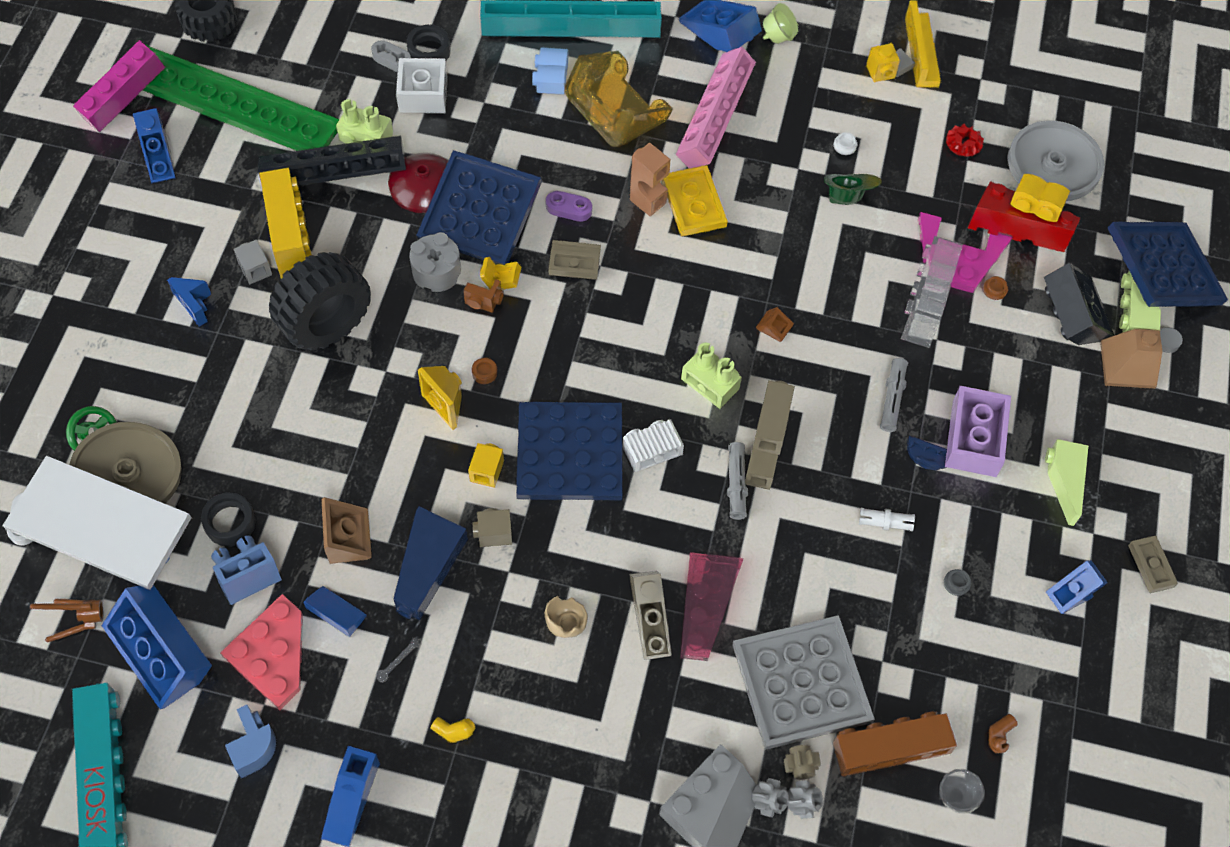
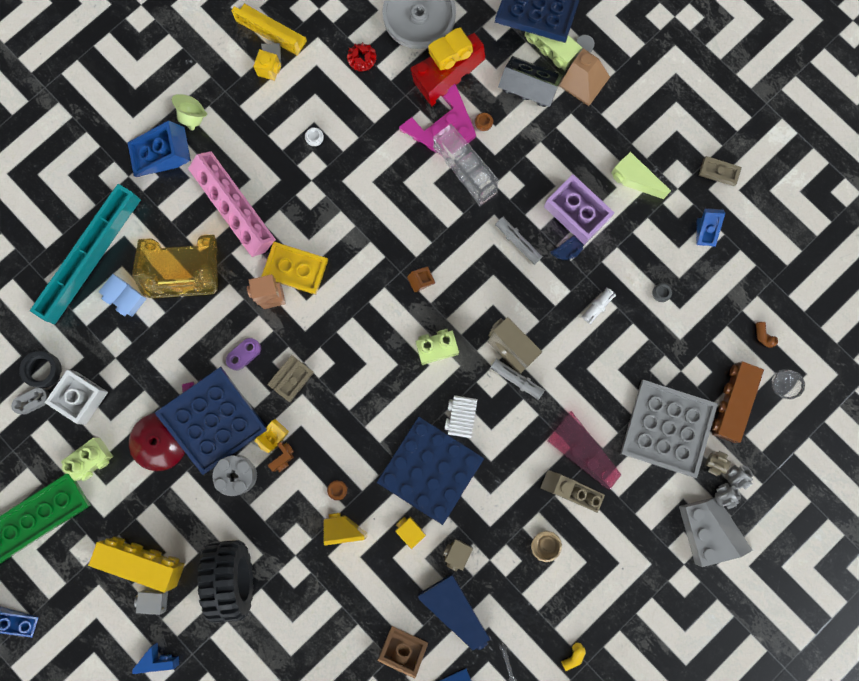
camera: 55 degrees left, 20 degrees up
(339, 160) = (104, 500): black brick -> none
(849, 188) = (351, 160): dark green piece -> none

